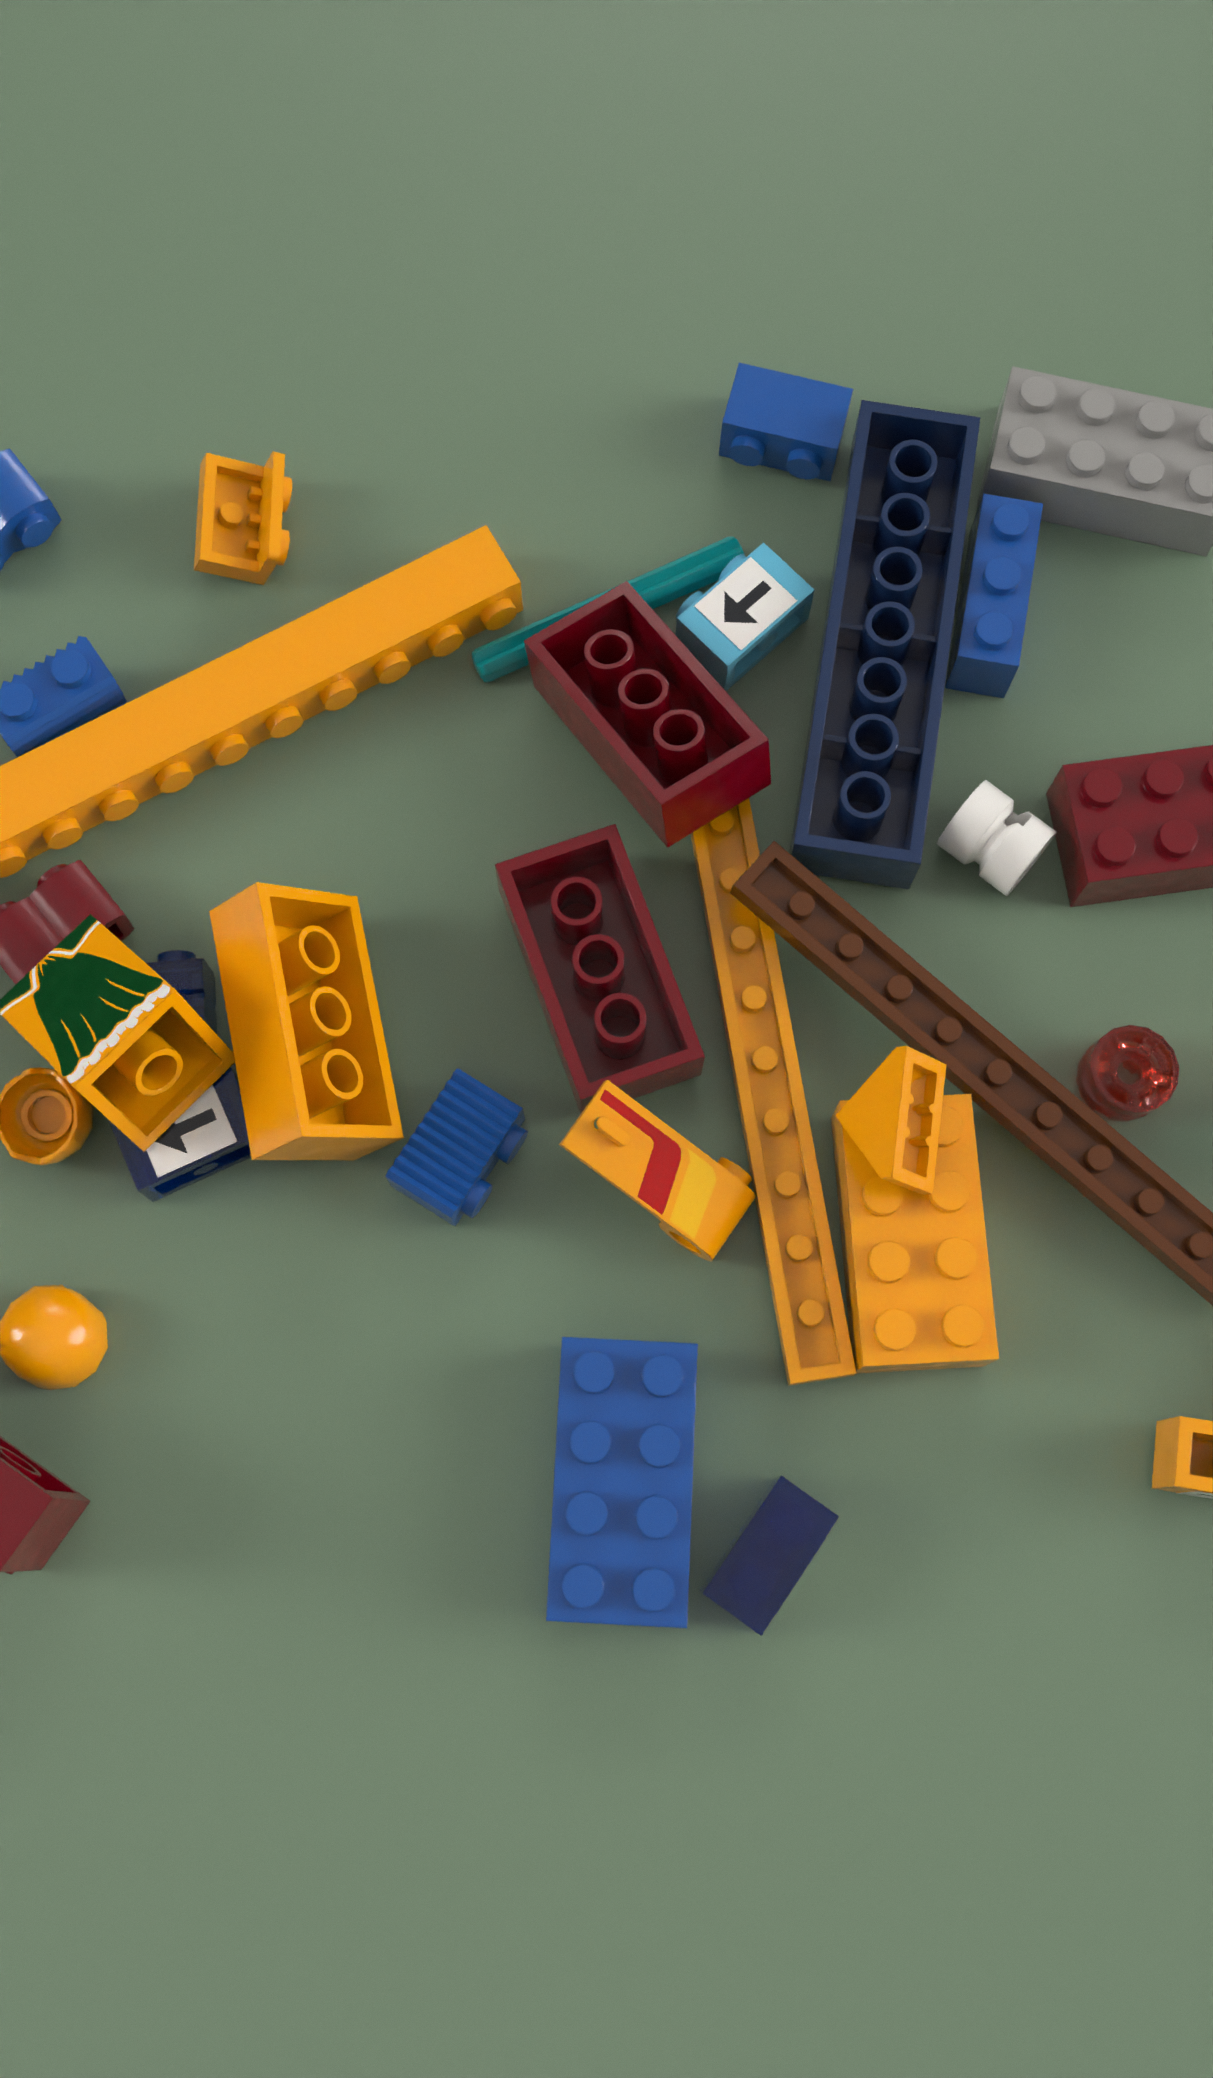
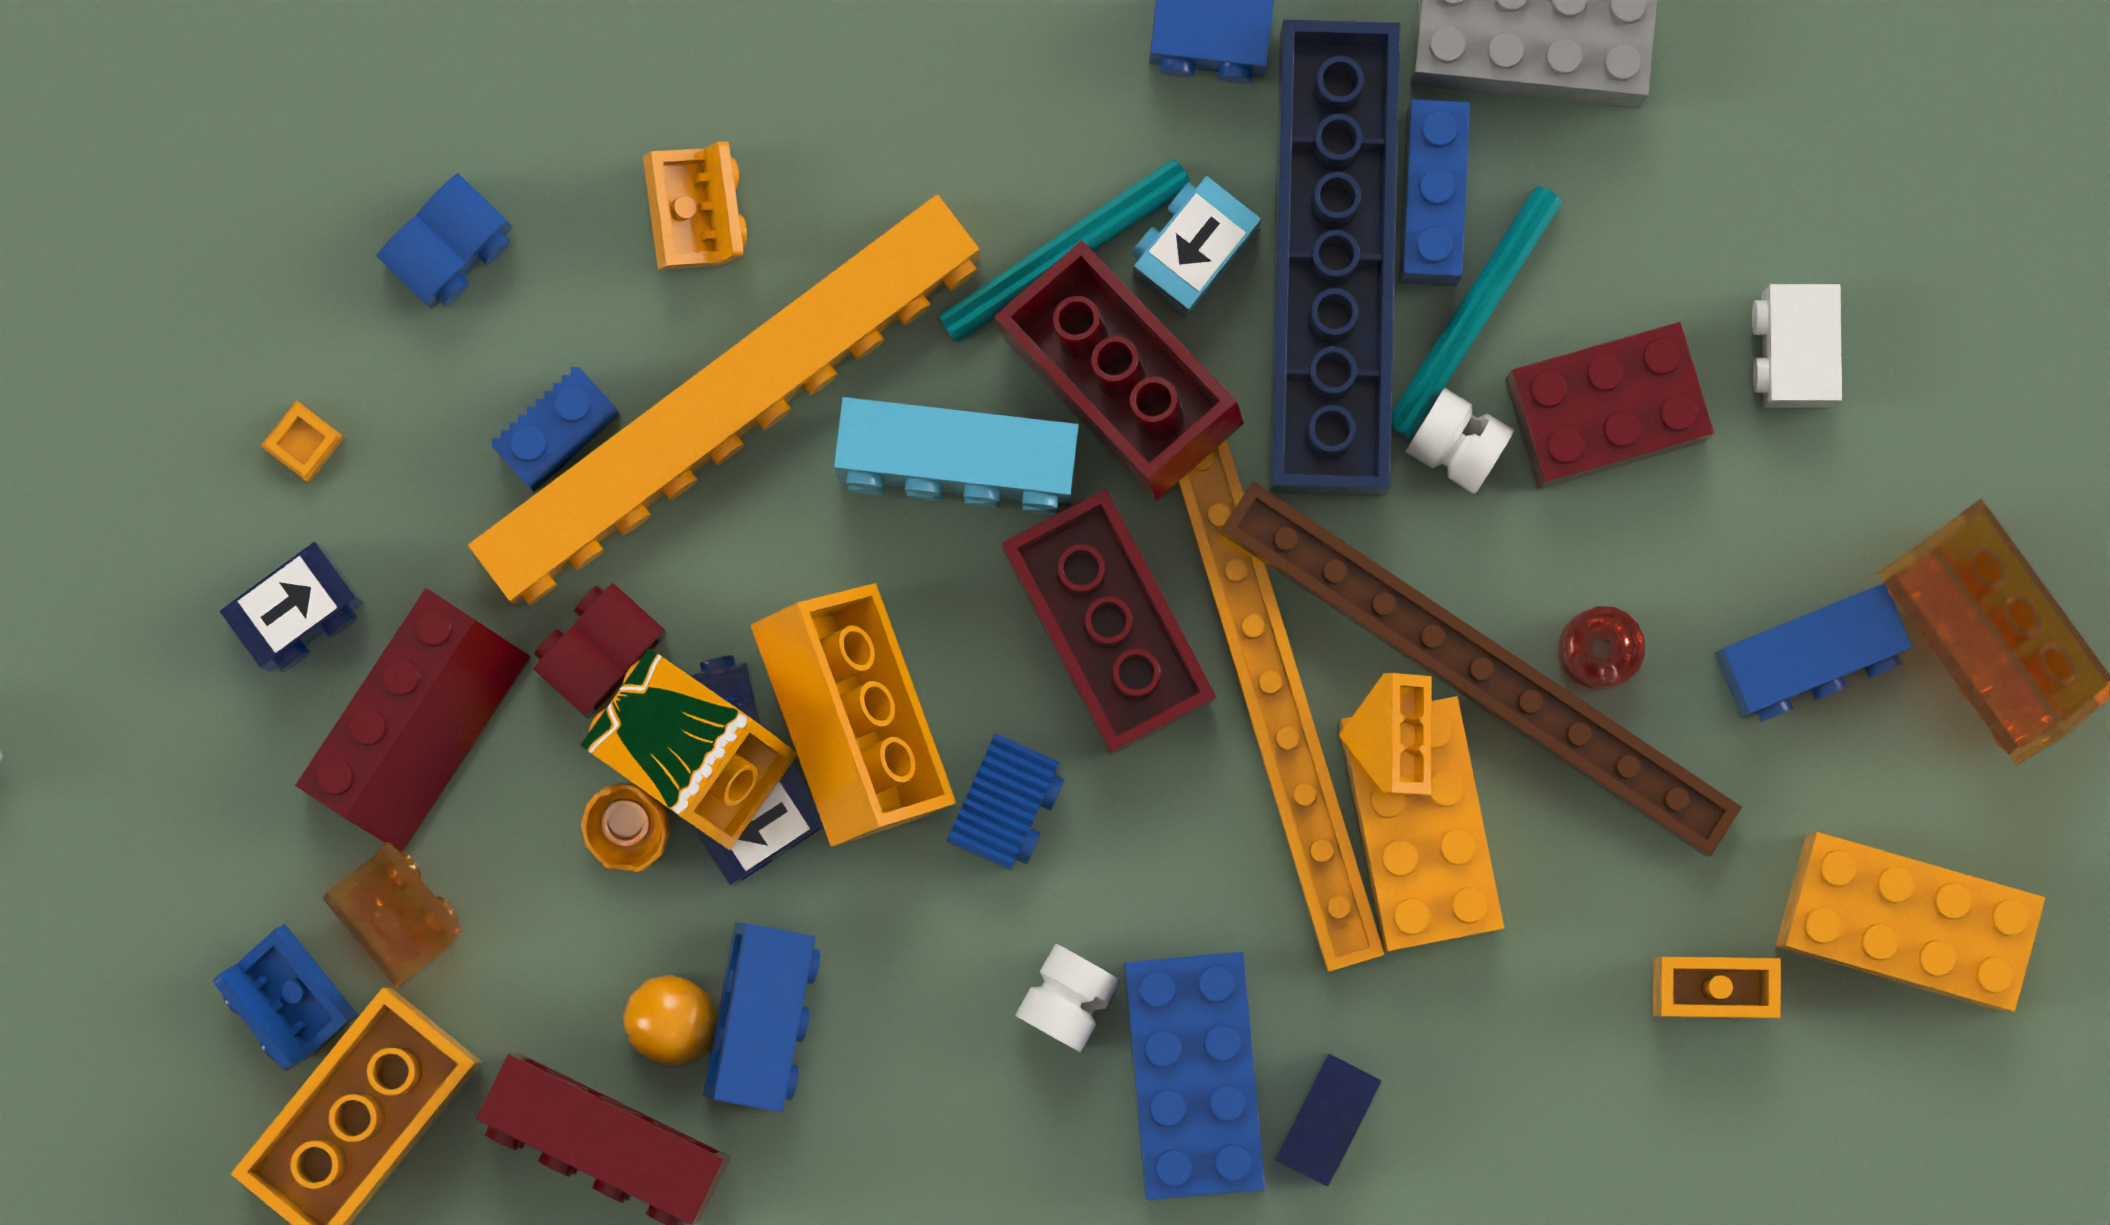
camera: 10 degrees left, 10 degrees up
(148, 1345) = (761, 1017): none -> blue brick
(460, 771) = (955, 453): none -> medium azure brick
(493, 1371) = (1068, 997): none -> white wheel
(661, 1171) = (1190, 802): light orange door -> none
(1024, 716) = (1474, 311): none -> teal axle

